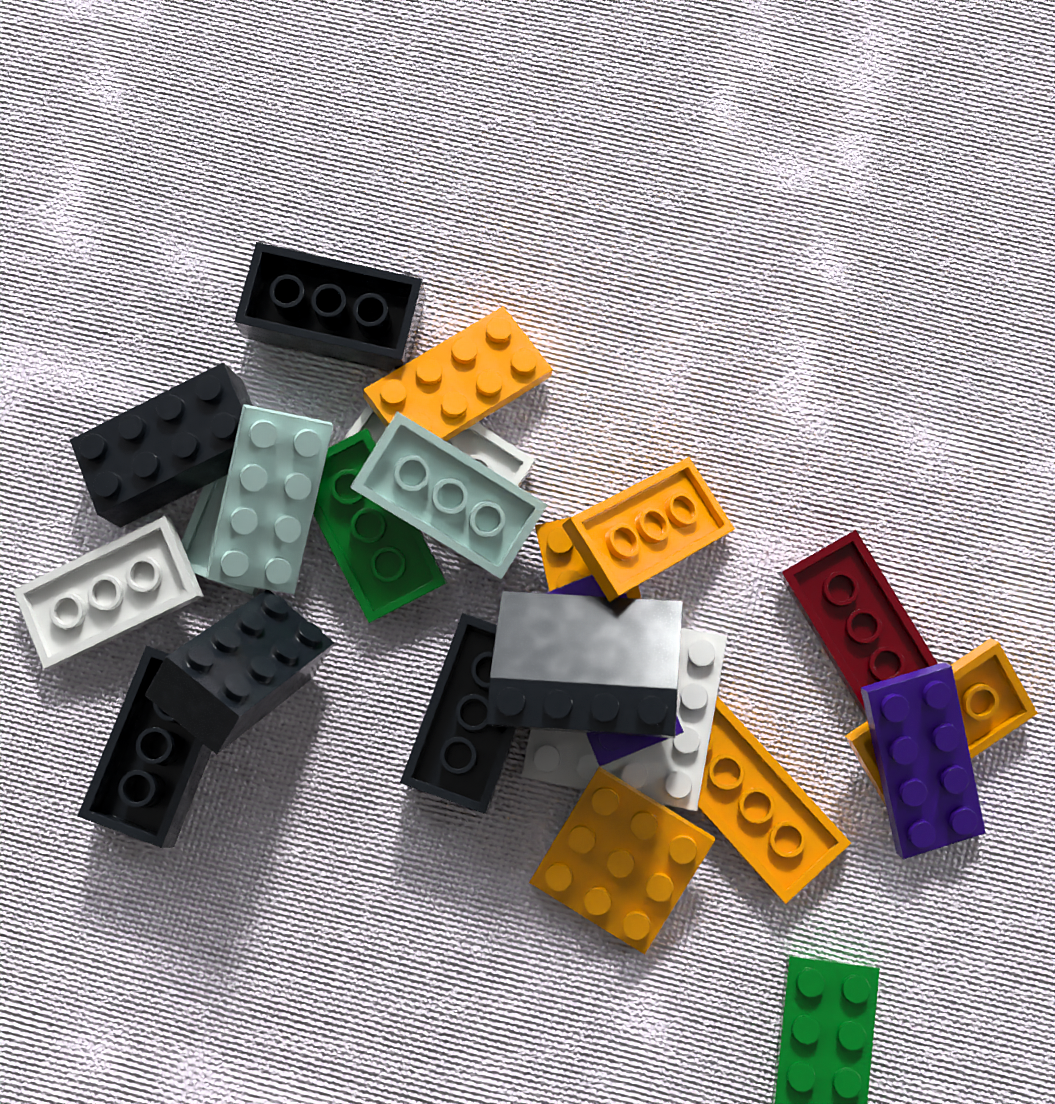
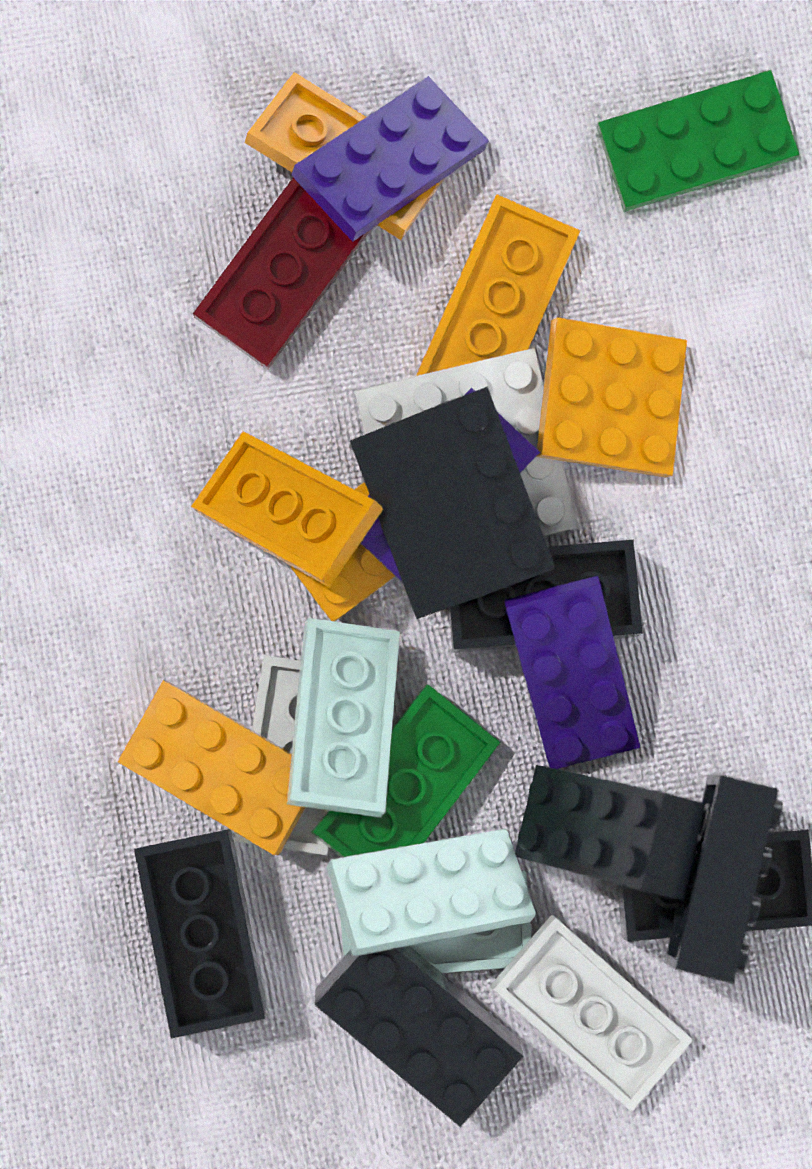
camera: 120 degrees left, 5 degrees up
(149, 743) = (723, 879): none -> black brick
(395, 707) = (573, 673): none -> dark purple plate

